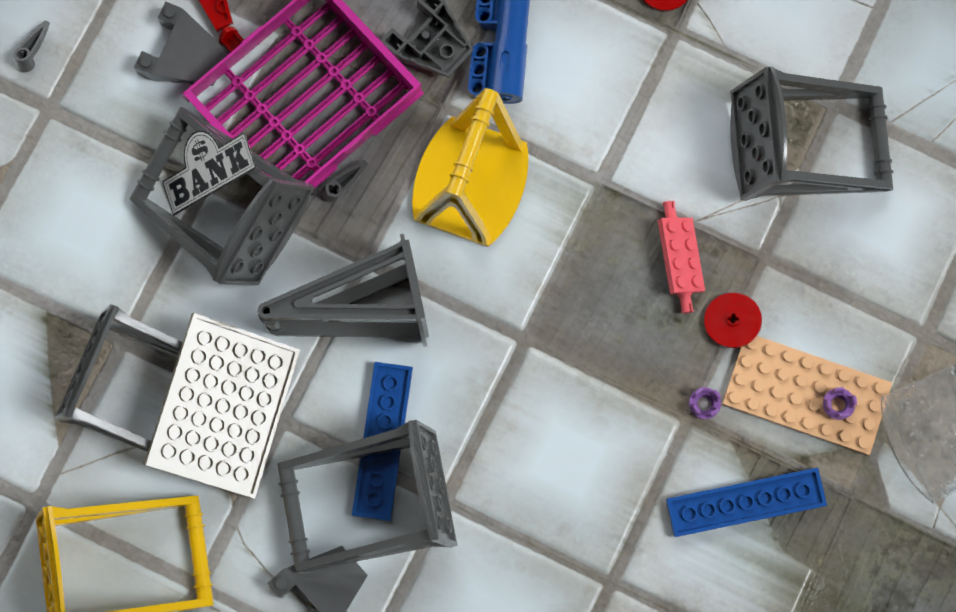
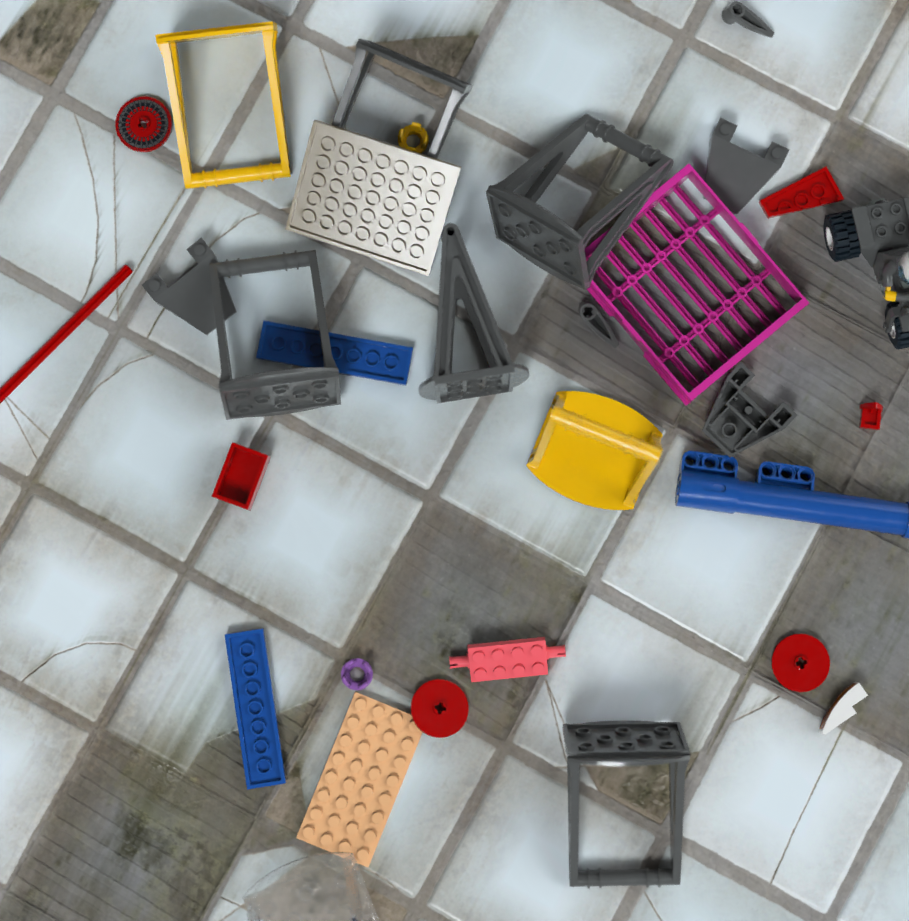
camera: 100 degrees right, 5 degrees up
(149, 365) = (413, 129): none -> yellow piece
(207, 169) = (605, 183): sticker -> none
(230, 38) = (750, 215): red tile -> none
(515, 528) = (241, 476): none -> red piece
(849, 399) = (347, 820): medium lavender piece -> none

